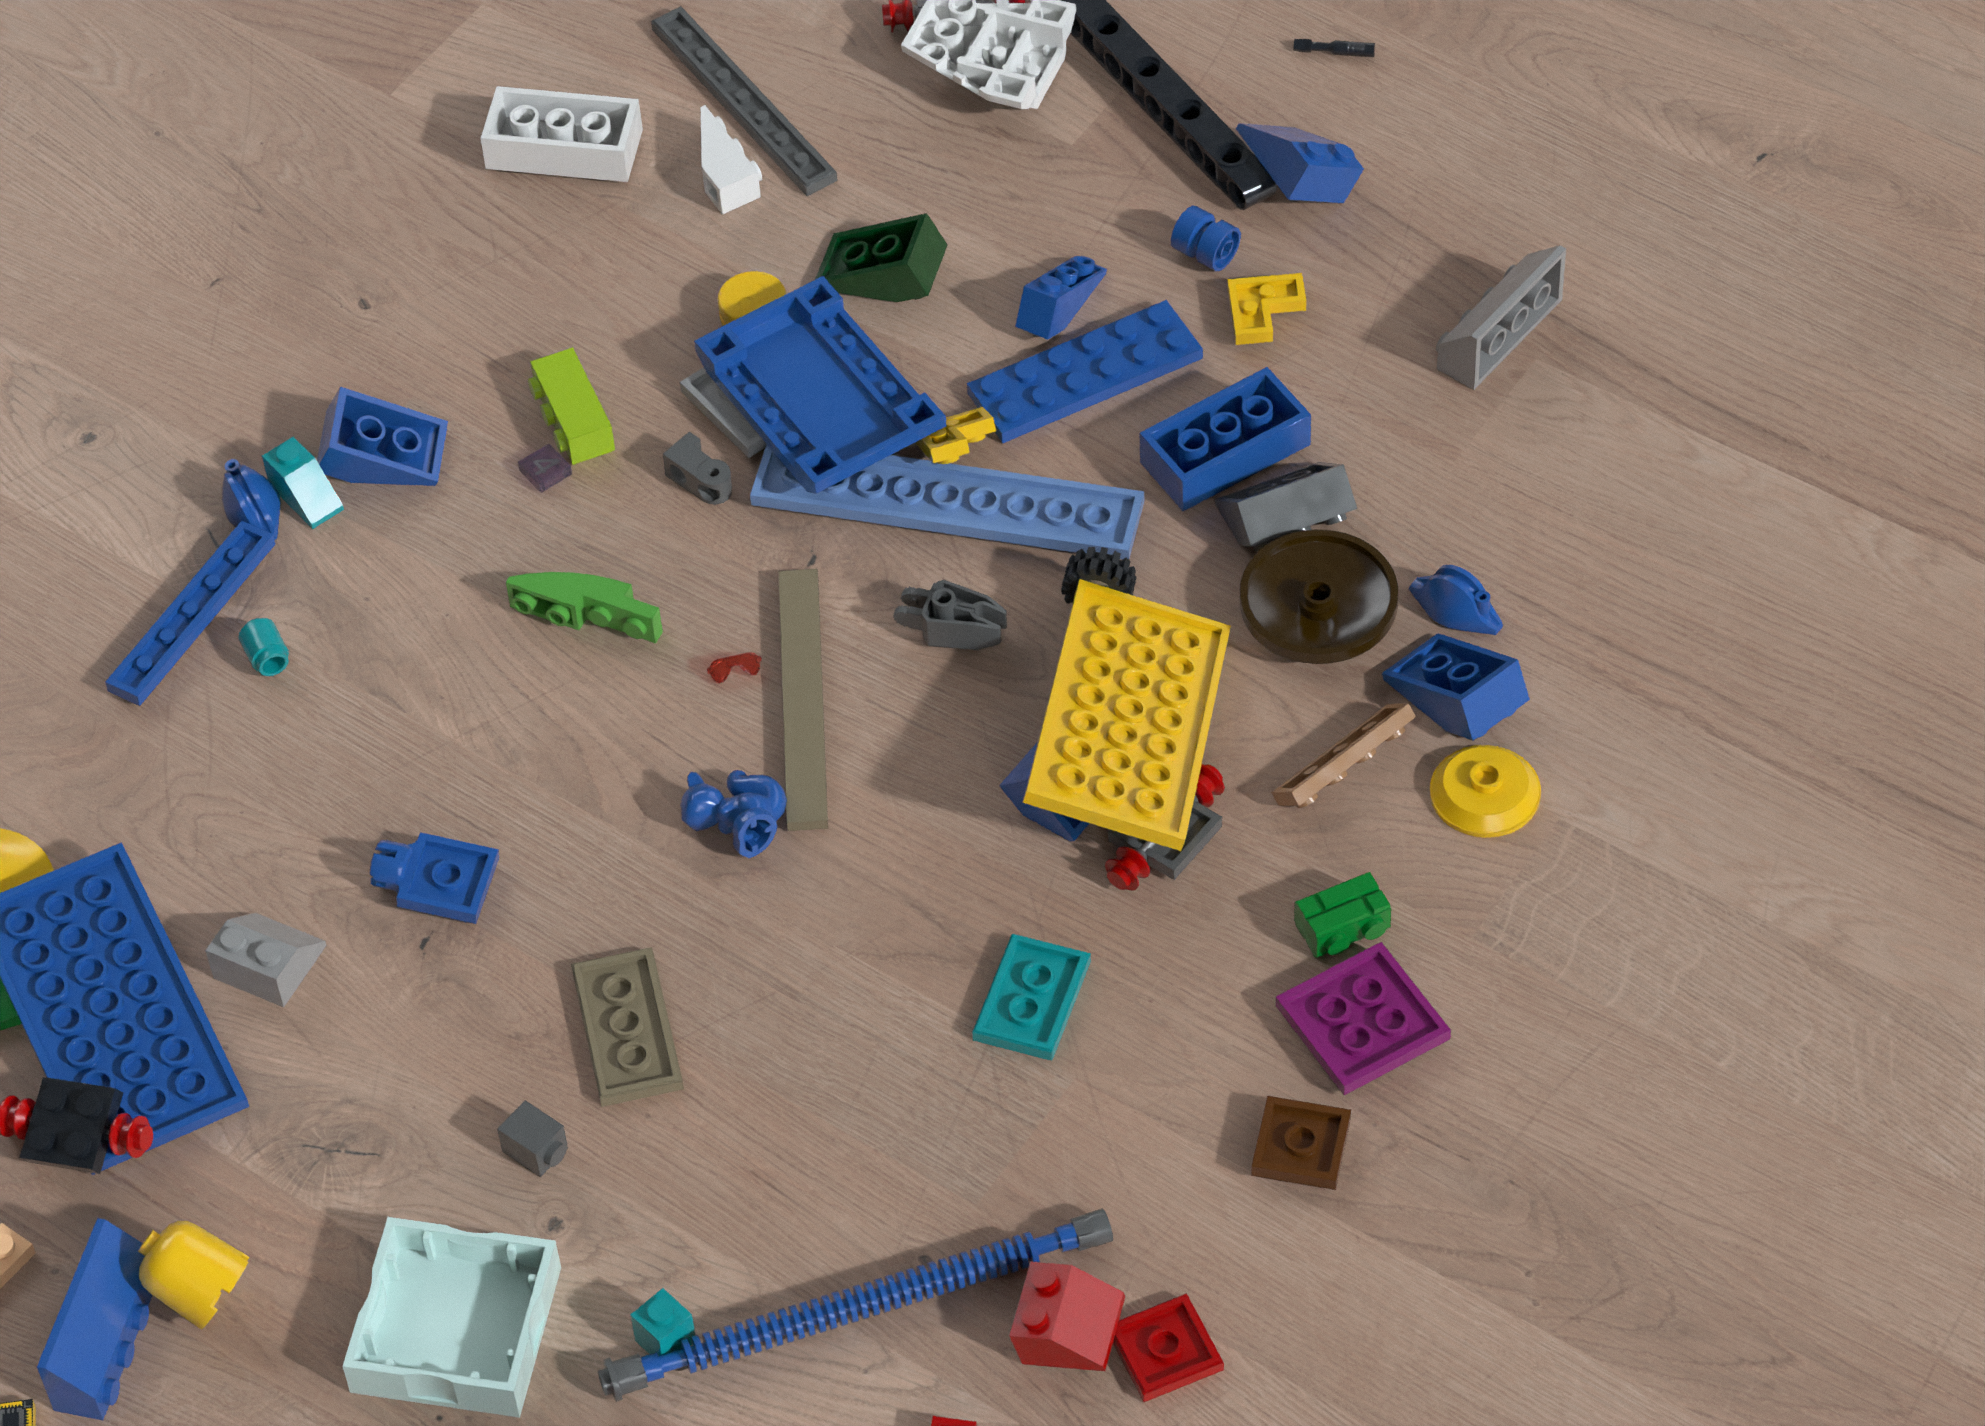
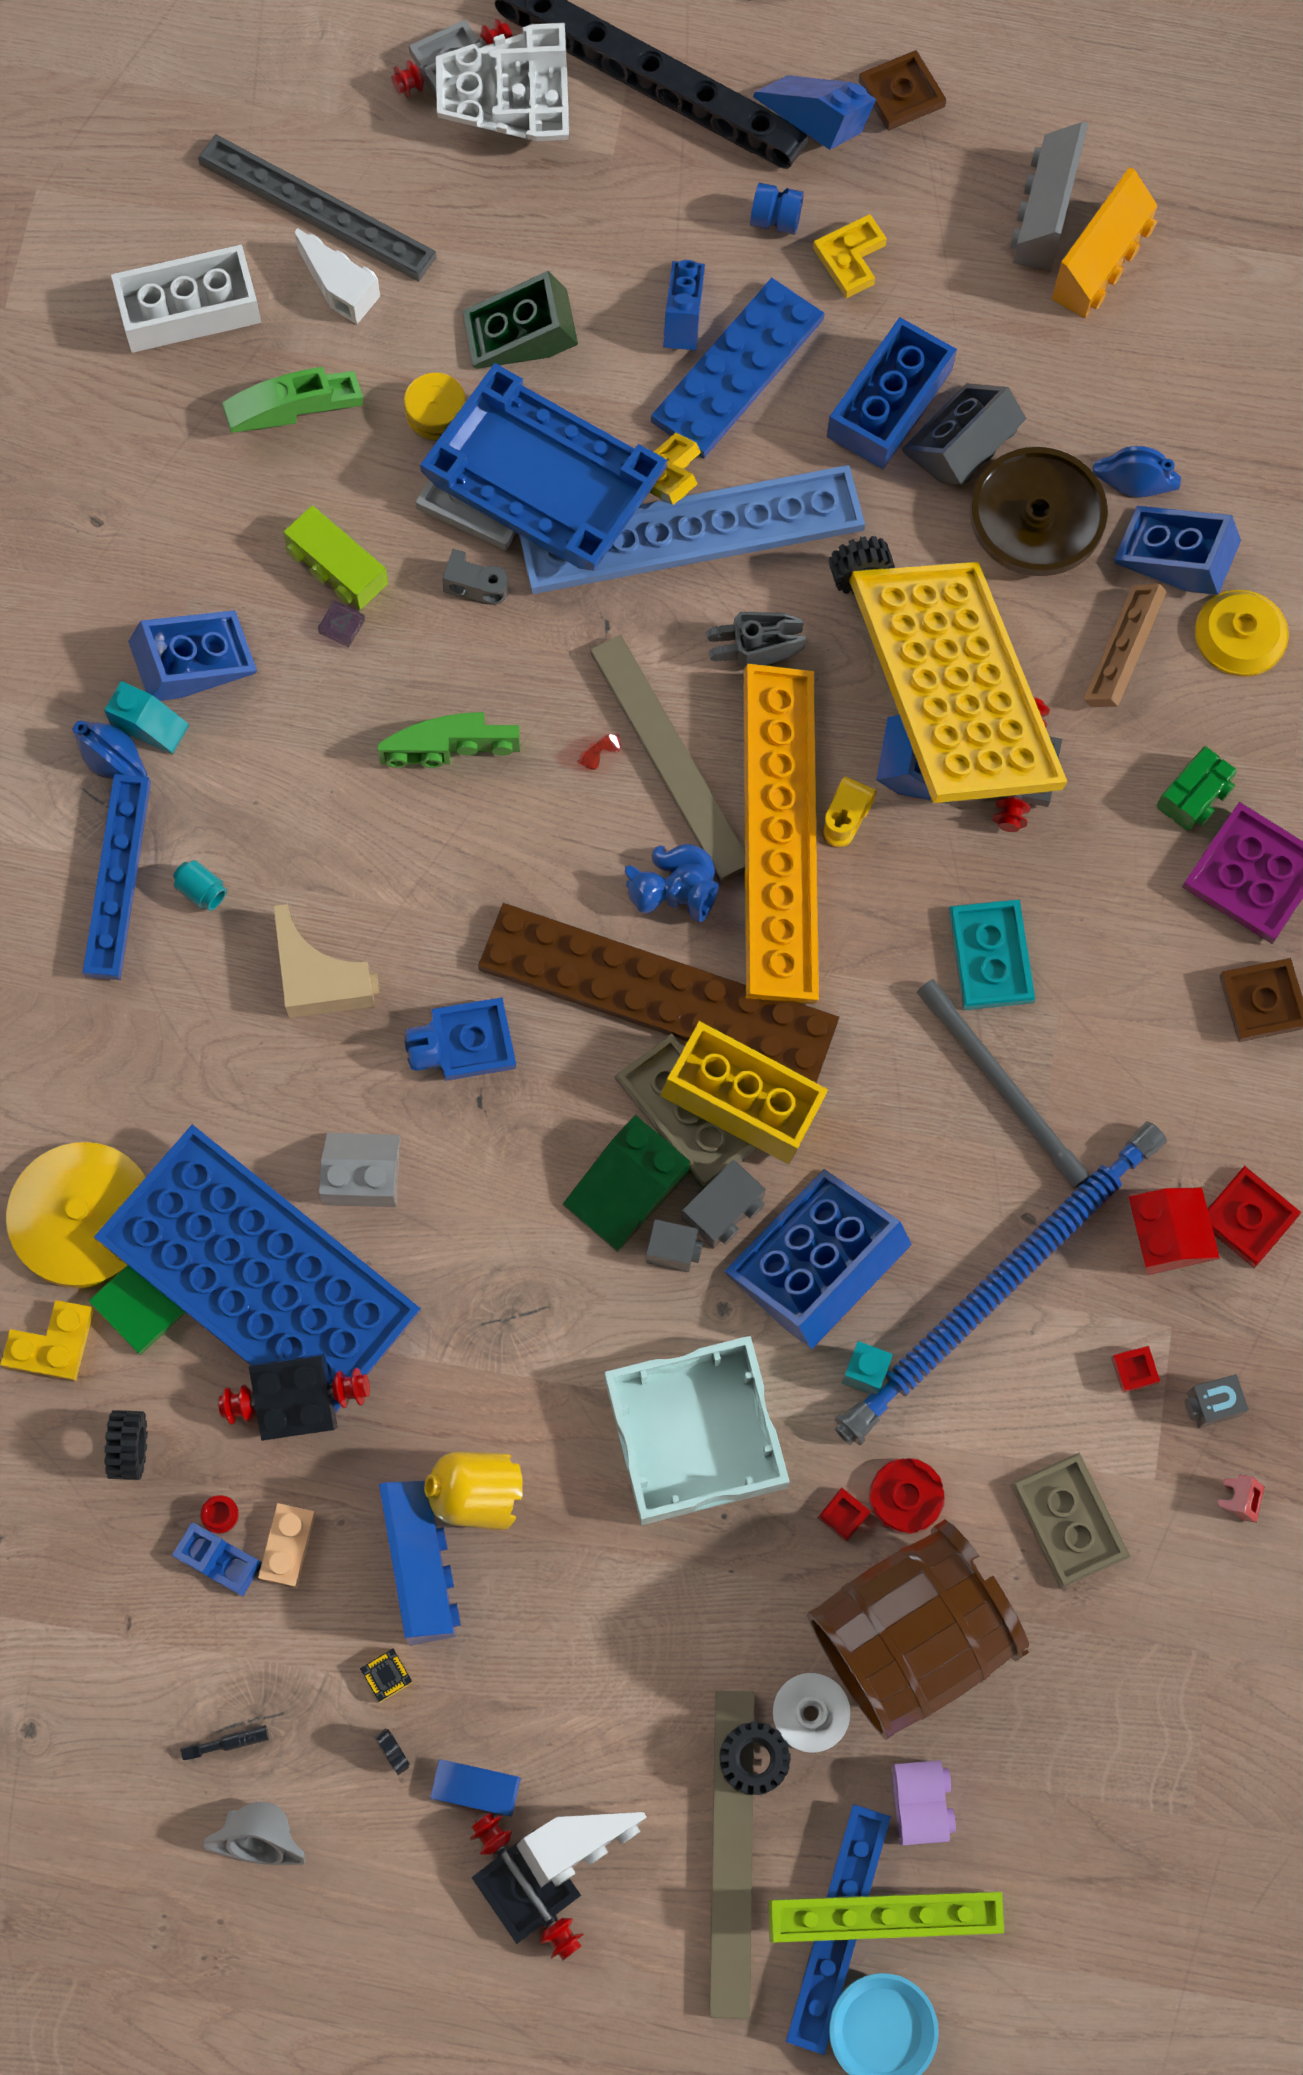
camera: 30 degrees left, 20 degrees up
(324, 771) = (316, 981): none -> tan arch
(526, 1058) = (627, 1183): none -> dark green slope
(605, 247) = (289, 395): none -> bright green slope
(608, 1119) = (723, 1204): none -> dark grey piece
(665, 910) = (651, 989): none -> reddish brown plate
(678, 1209) = (819, 1257): none -> blue slope
(685, 1017) = (743, 1092): none -> yellow brick
(869, 803) = (780, 835): none -> light orange plate
(949, 1028) = (1062, 1157): none -> dark grey piece
(957, 802) = (848, 808): none -> yellow piece
(1405, 174) = (902, 90): none -> reddish brown plate
(1534, 373) = (1105, 246): none -> light orange slope

